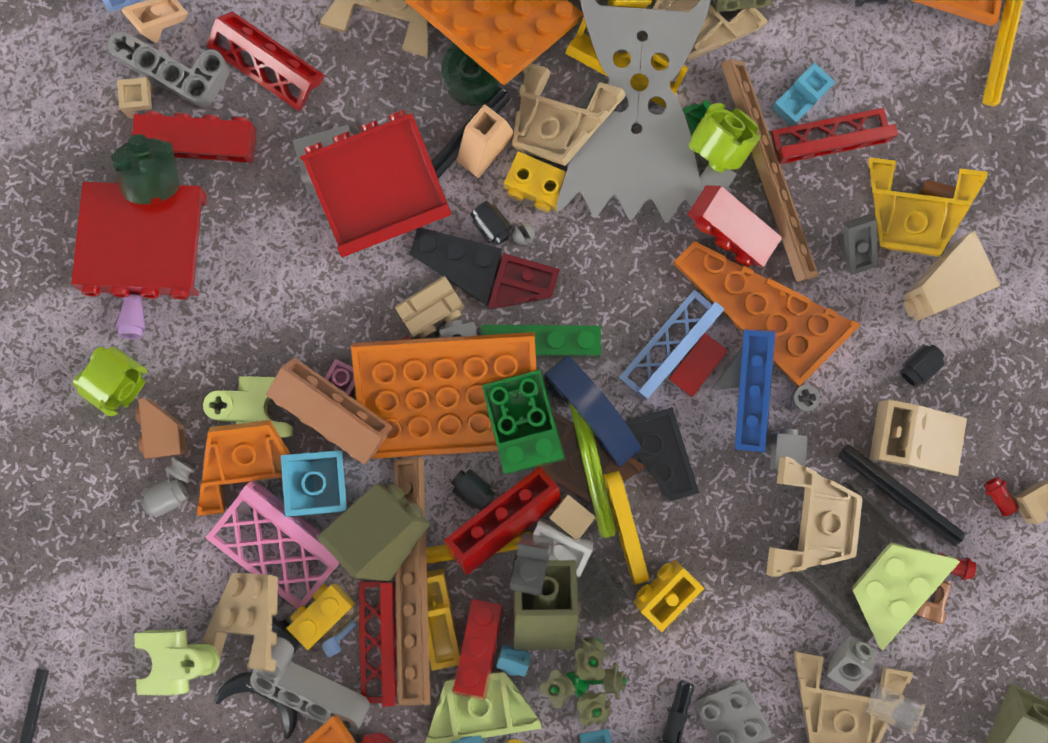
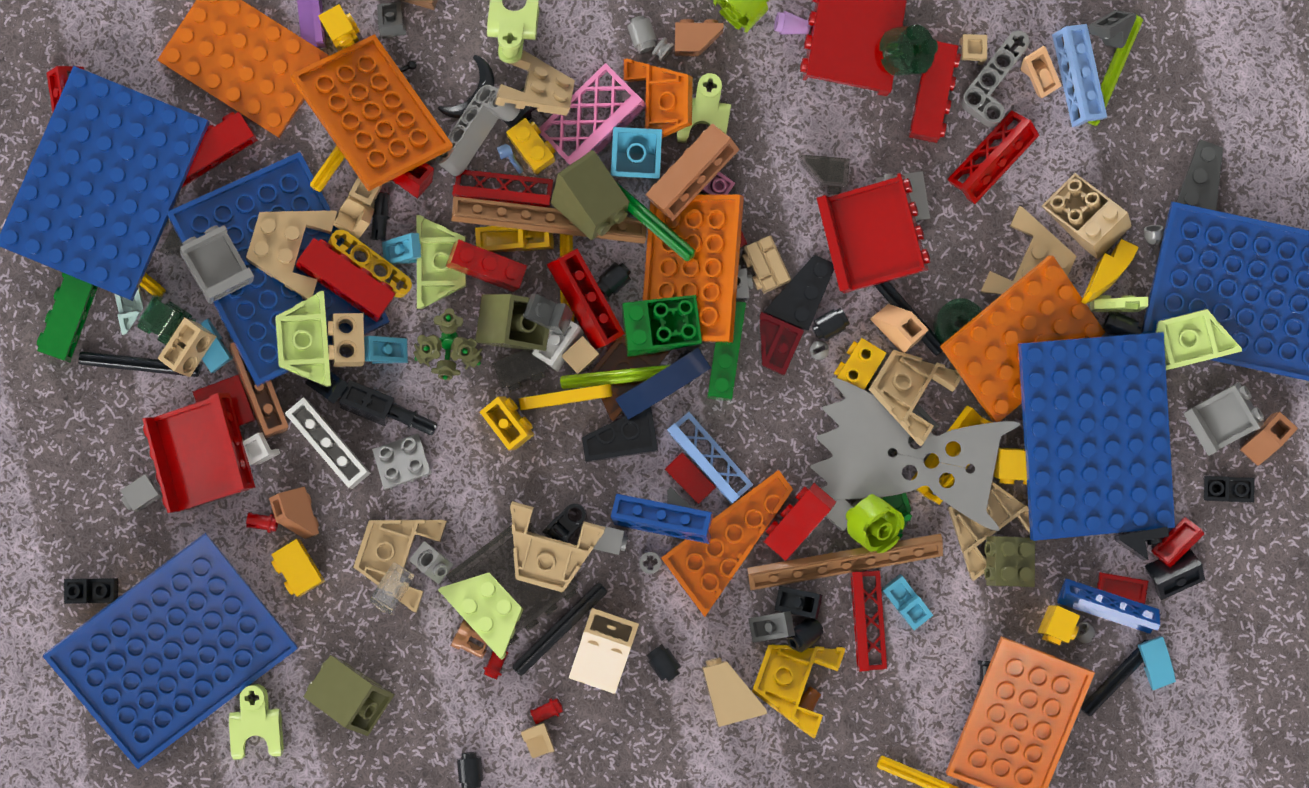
camera: 95 degrees right, 0 degrees up
(307, 250) = (827, 172): none -> clear smoke slope
(402, 443) = (659, 228): none -> green axle
(513, 661) = (472, 293): medium azure plate -> none
(780, 508) = (564, 524): none -> black piece
(827, 216) = (798, 602): none -> black slope
(861, 201) = (806, 635): none -> black brick

